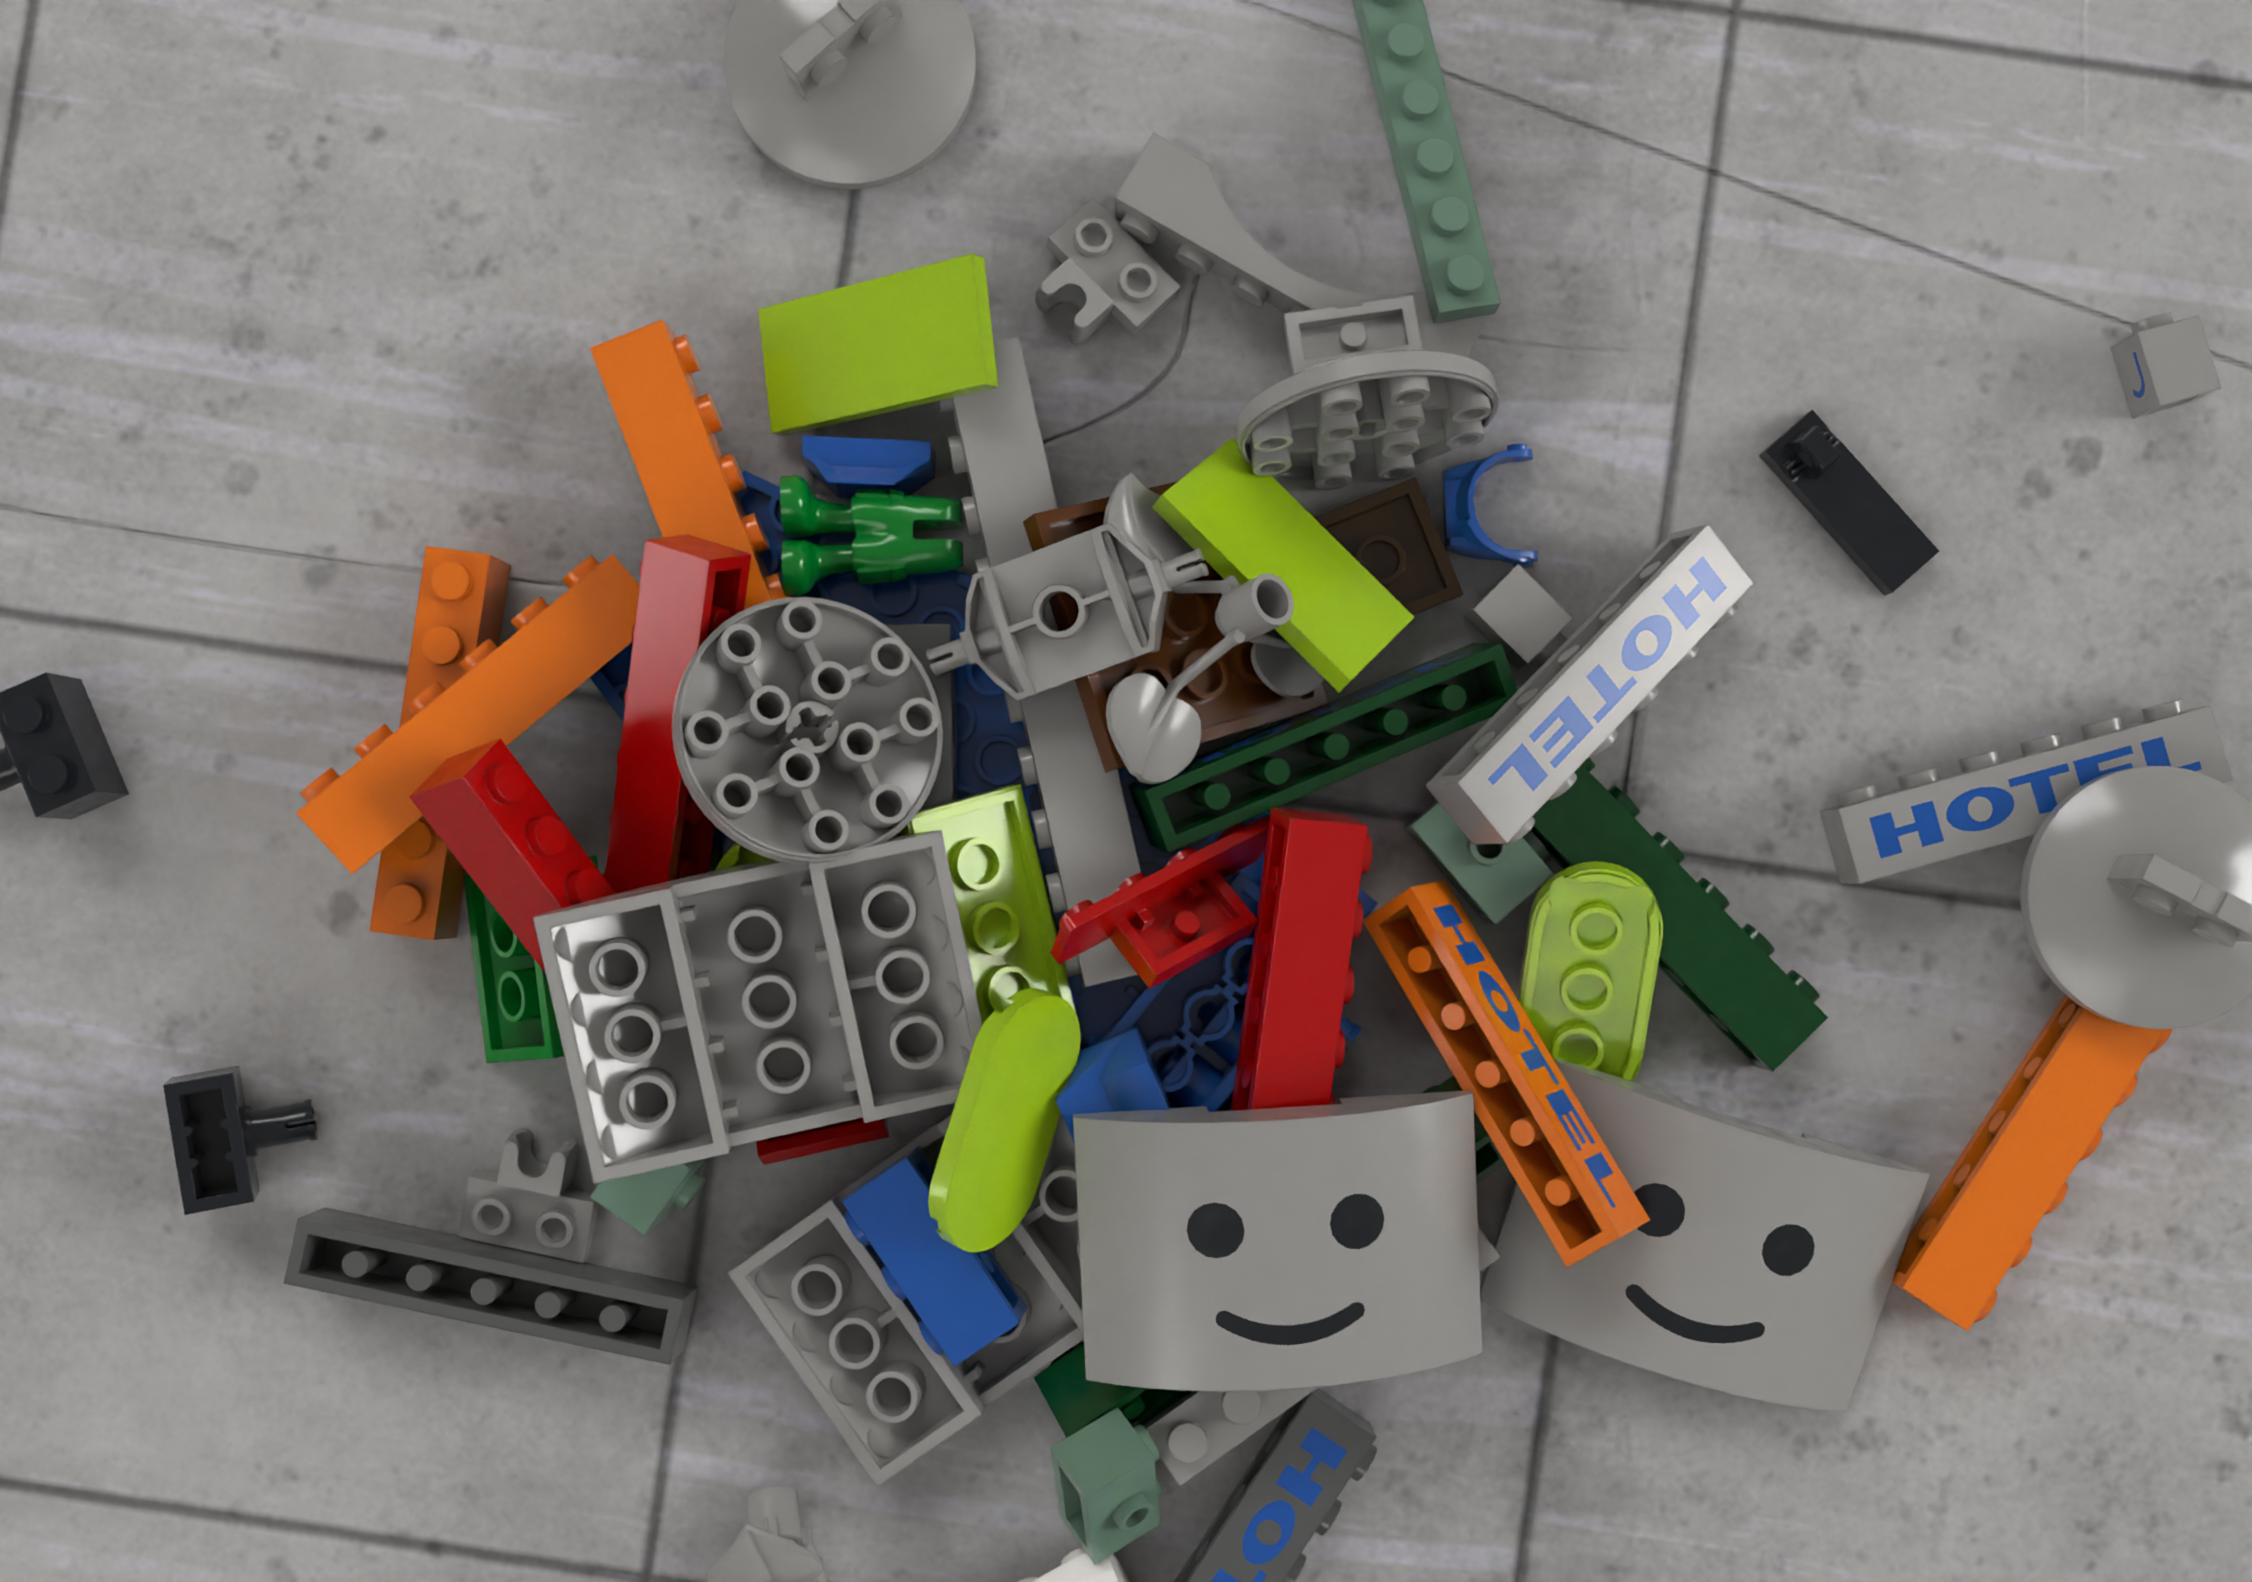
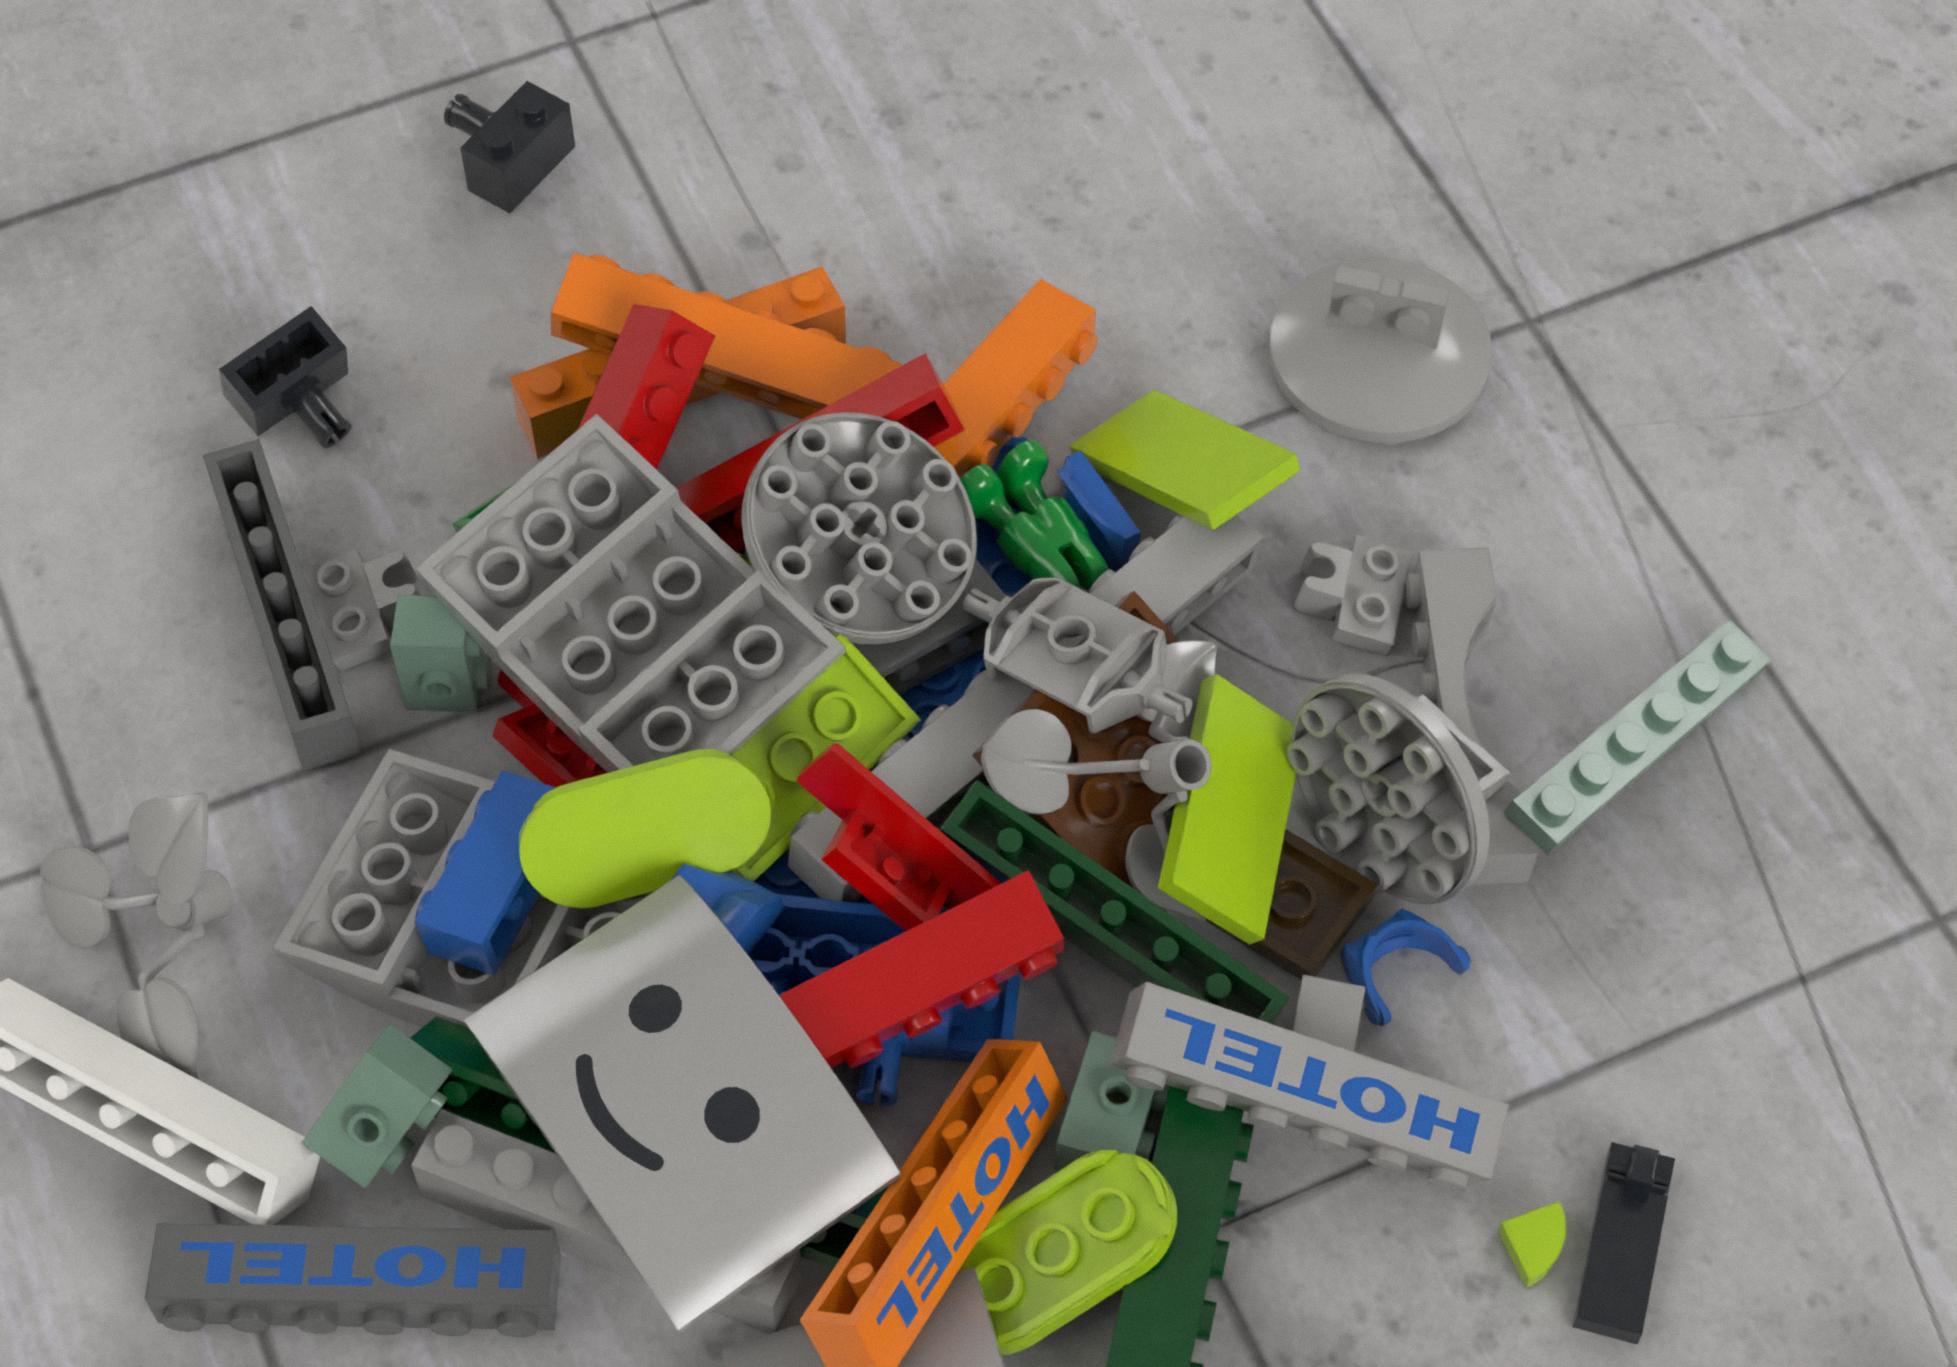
camera: 55 degrees right, 30 degrees down
(1804, 574) = (1535, 1241): none -> lime tile

